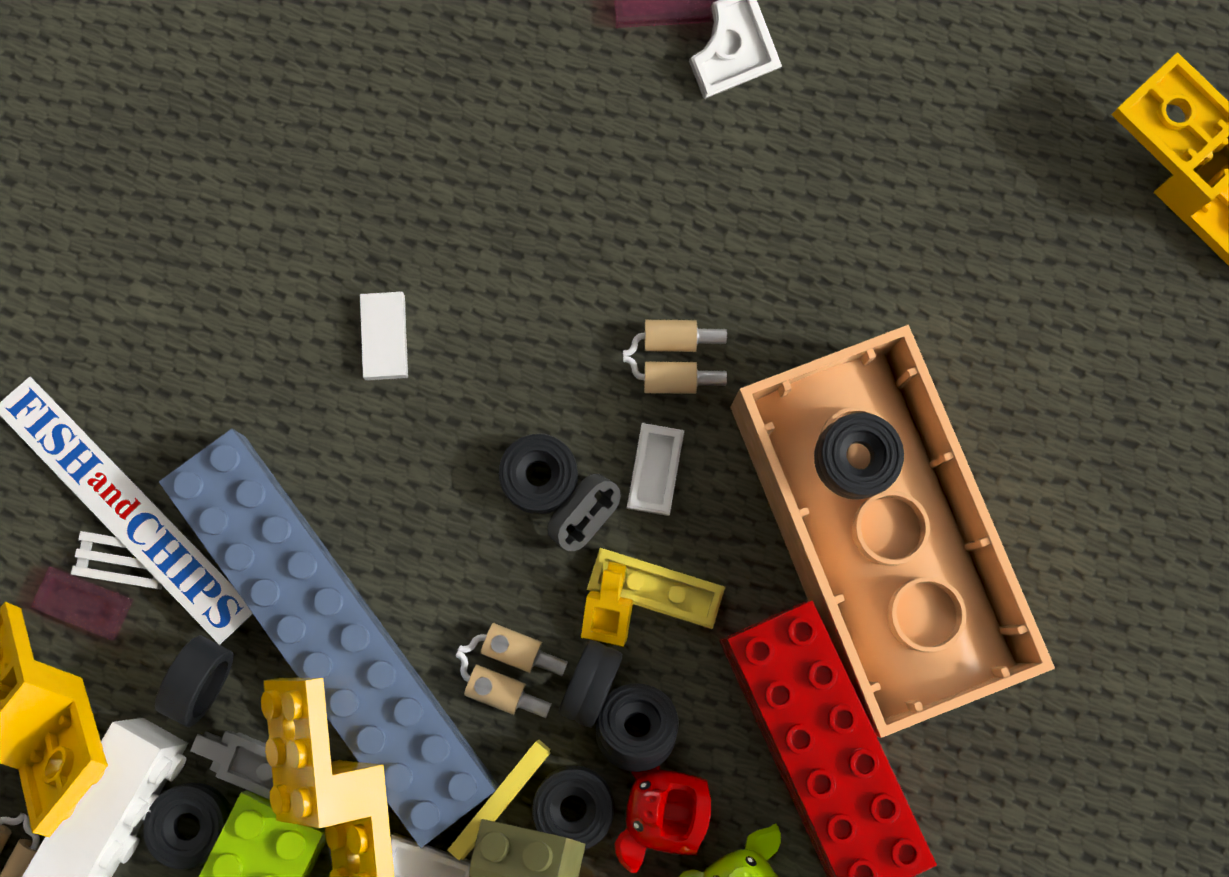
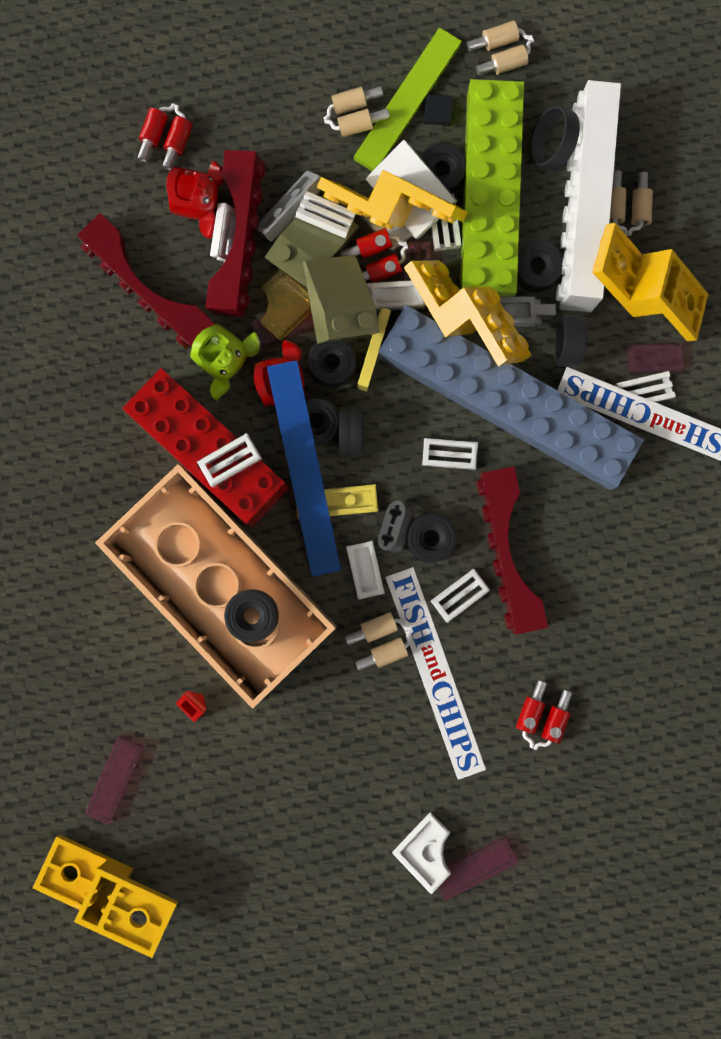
camera: 155 degrees right, 5 degrees up
(383, 336) = (557, 582): white tile -> none
(408, 493) = (523, 607): none -> dark red arch
(488, 606) = (447, 464): none -> white tile
(502, 170) = (556, 720): none -> red piece
(502, 690) = (400, 432): tan piece -> none
(538, 390) = (441, 609): none -> white tile
(606, 612) = (358, 475): yellow plate -> none
(615, 285) = (436, 674): none -> white sticker
(684, 663) = (304, 467): none -> blue sticker
(760, 712) = (236, 469): none -> white tile
(986, 379) = (192, 705): none -> red slope
(1138, 323) = (114, 780): none -> clear pink tile

